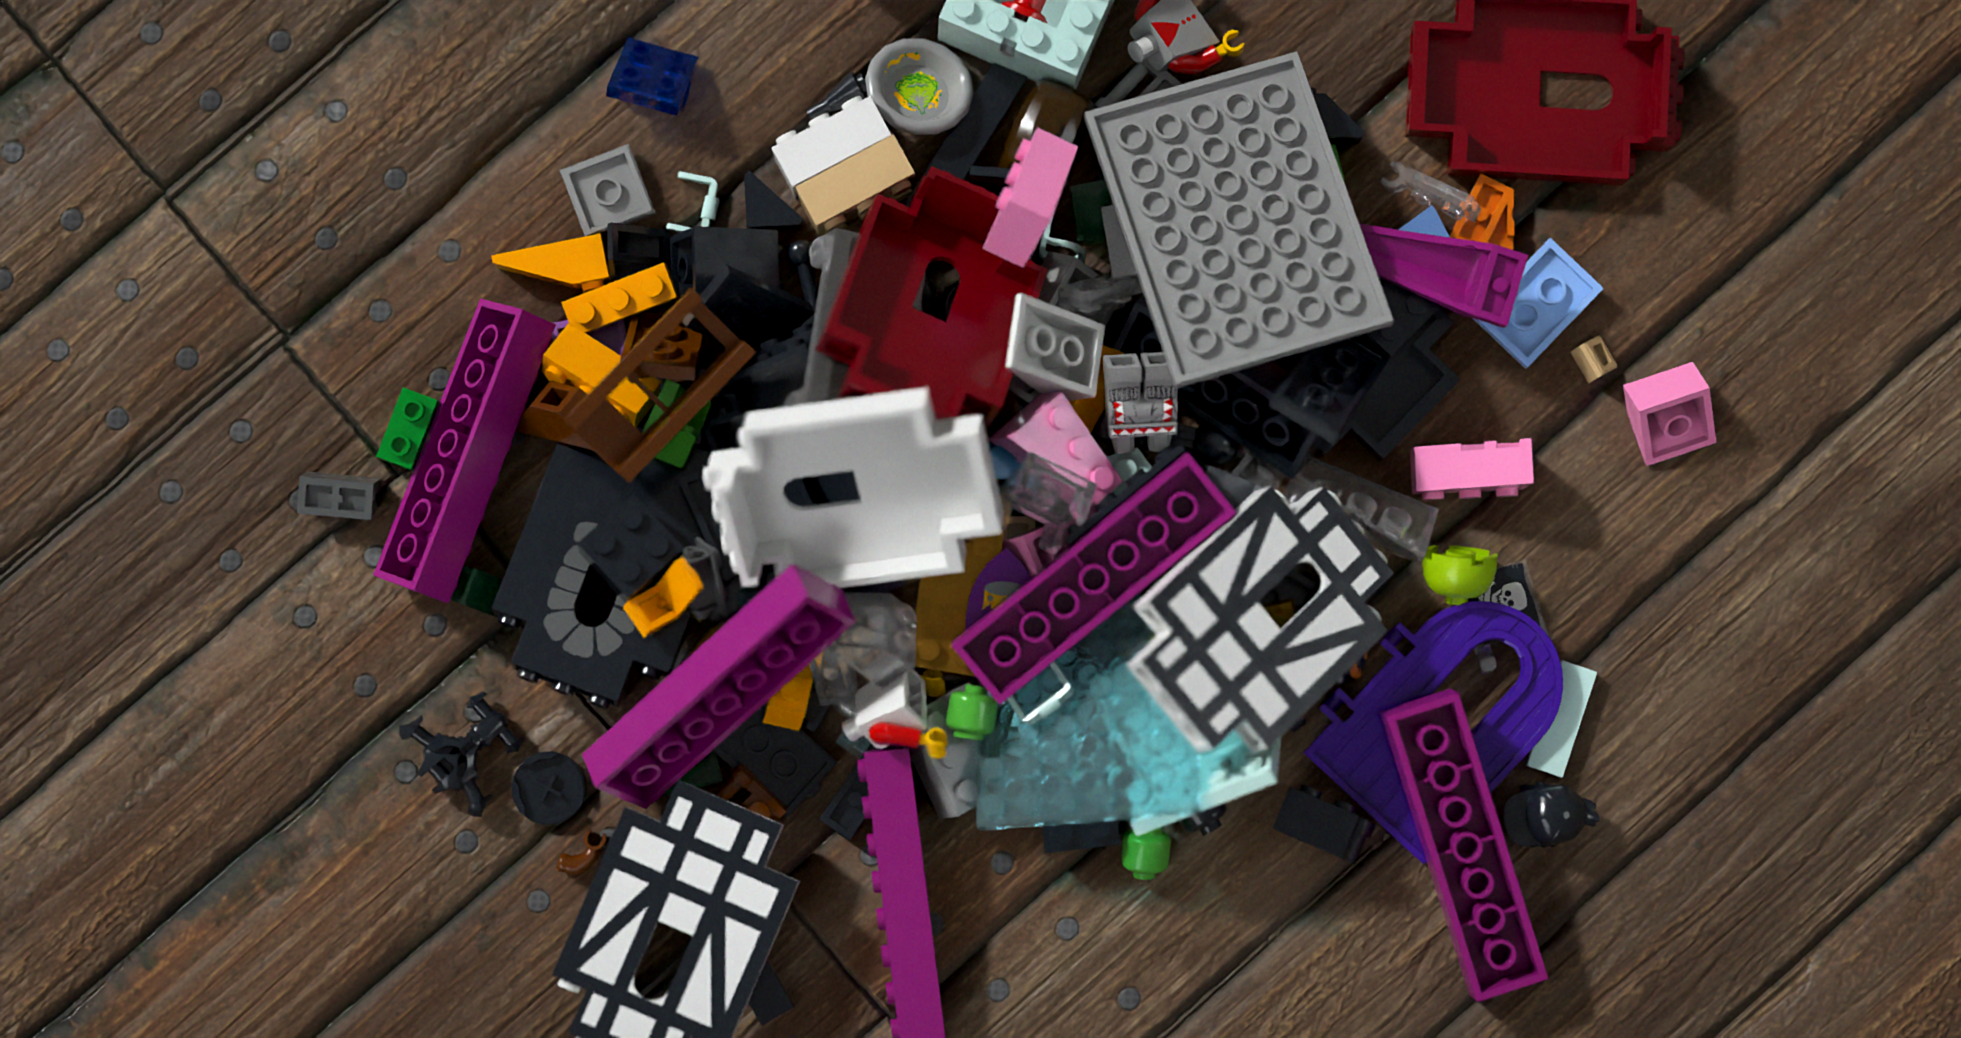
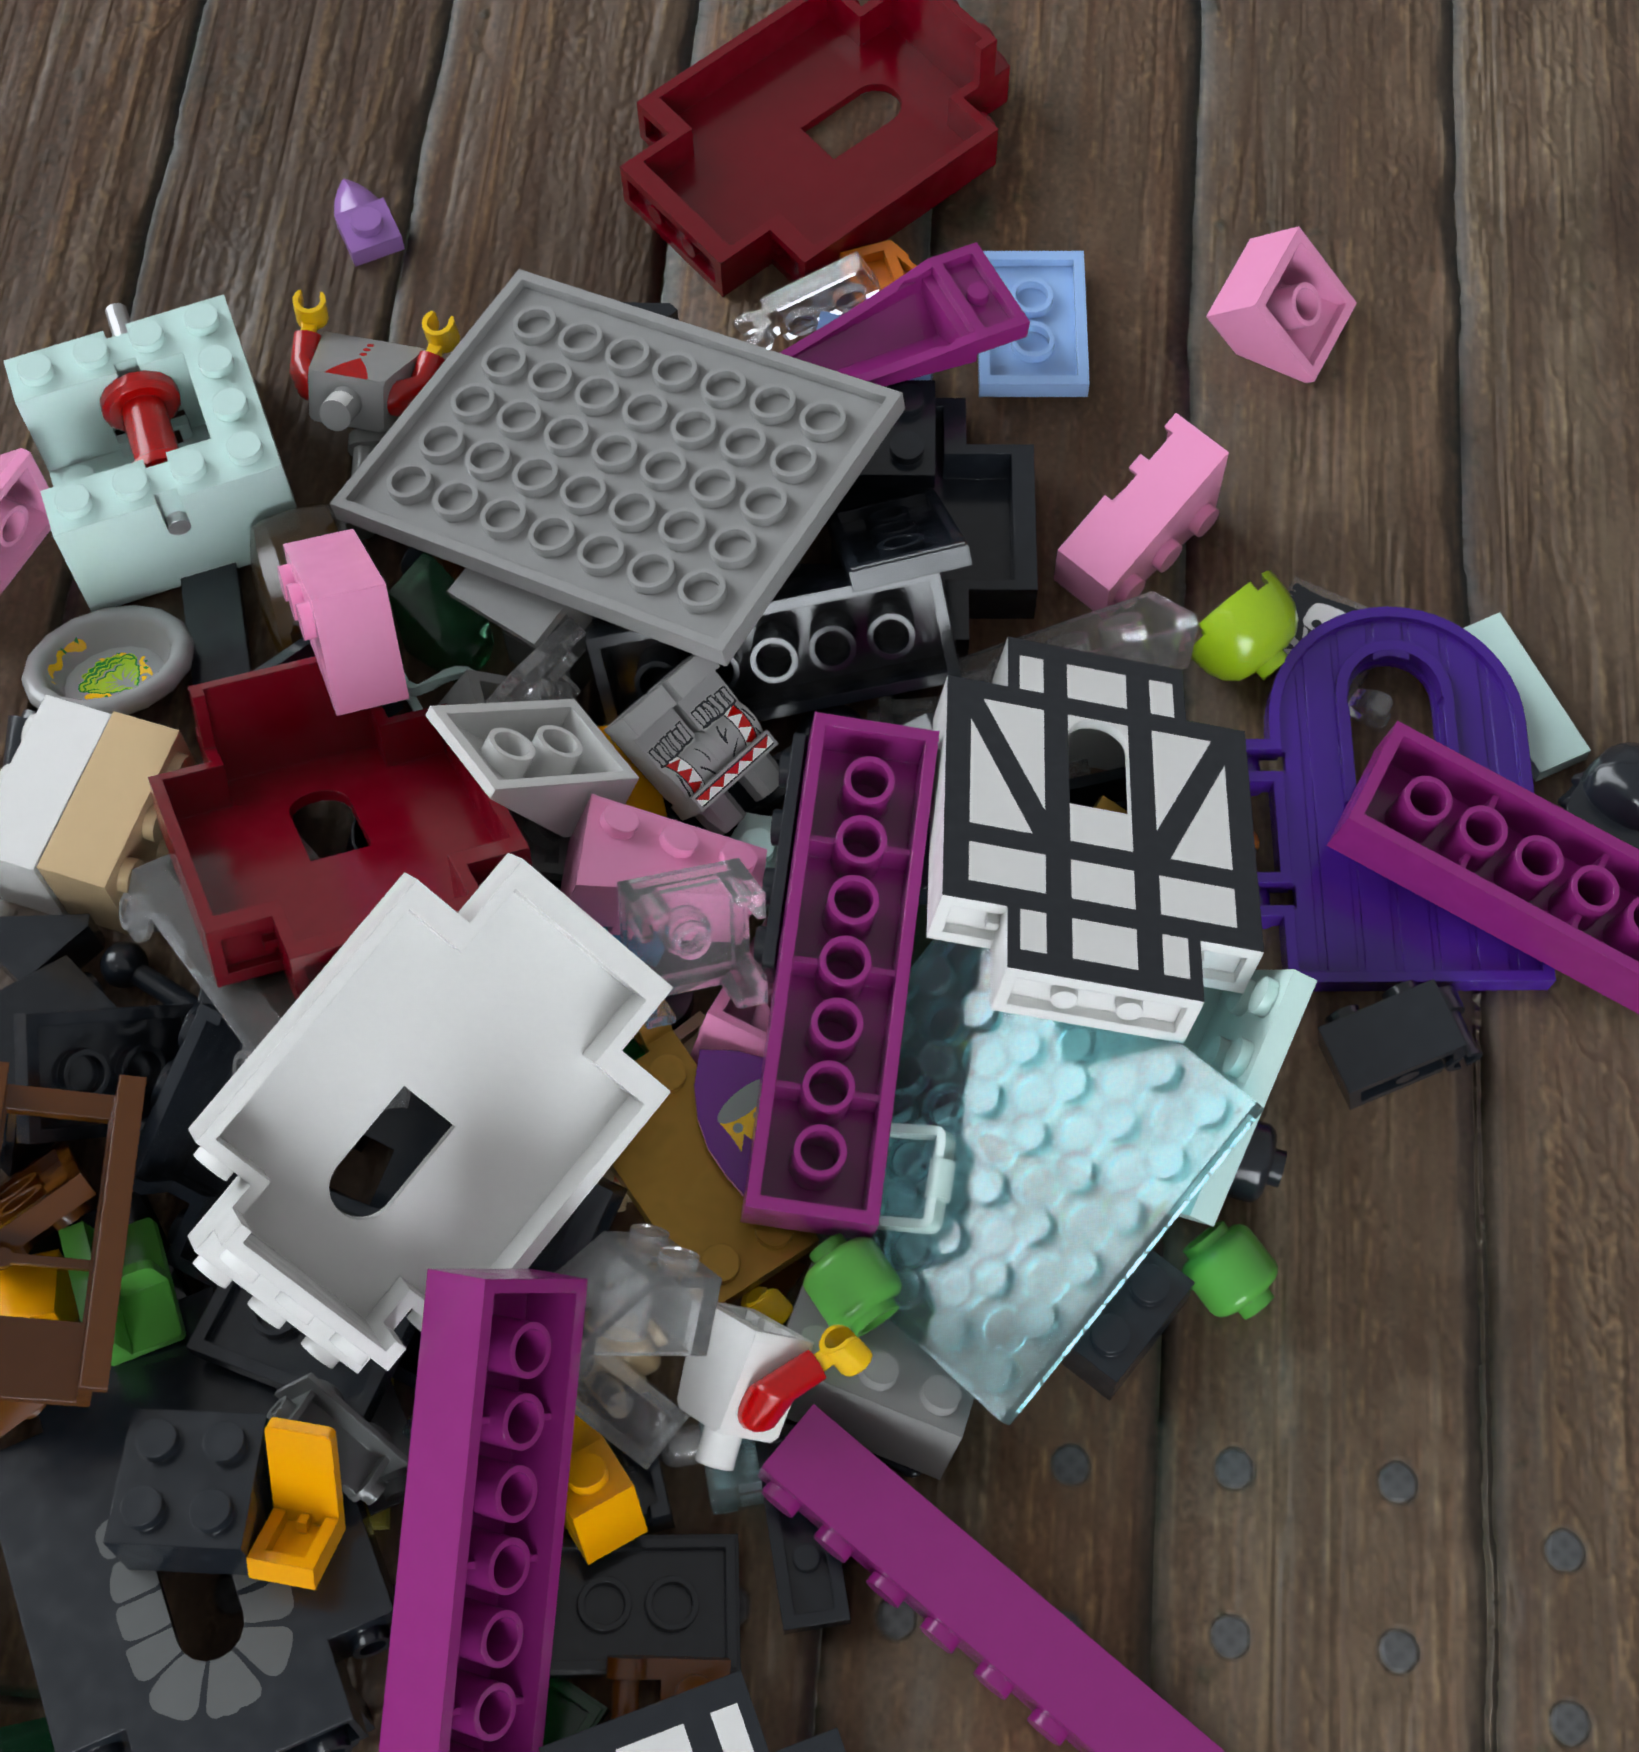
camera: 40 degrees left, 20 degrees down
(1594, 359) = (1145, 332): tan slope -> none

